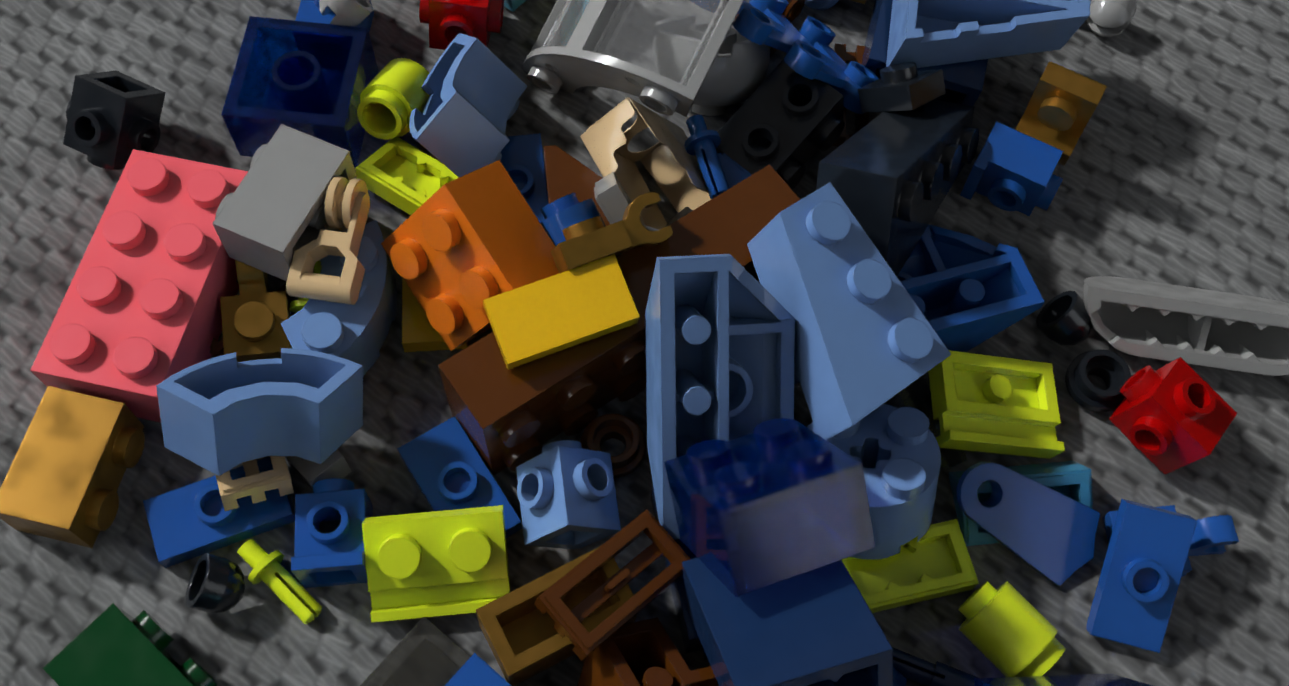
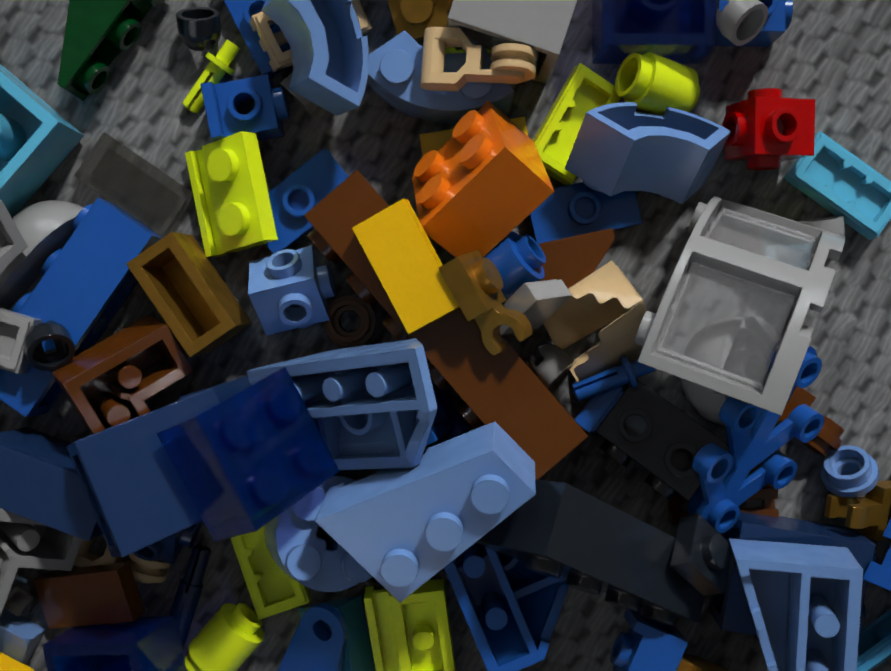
camera: 85 degrees right, 25 degrees up
(569, 622) = (213, 320): reddish brown tile -> none

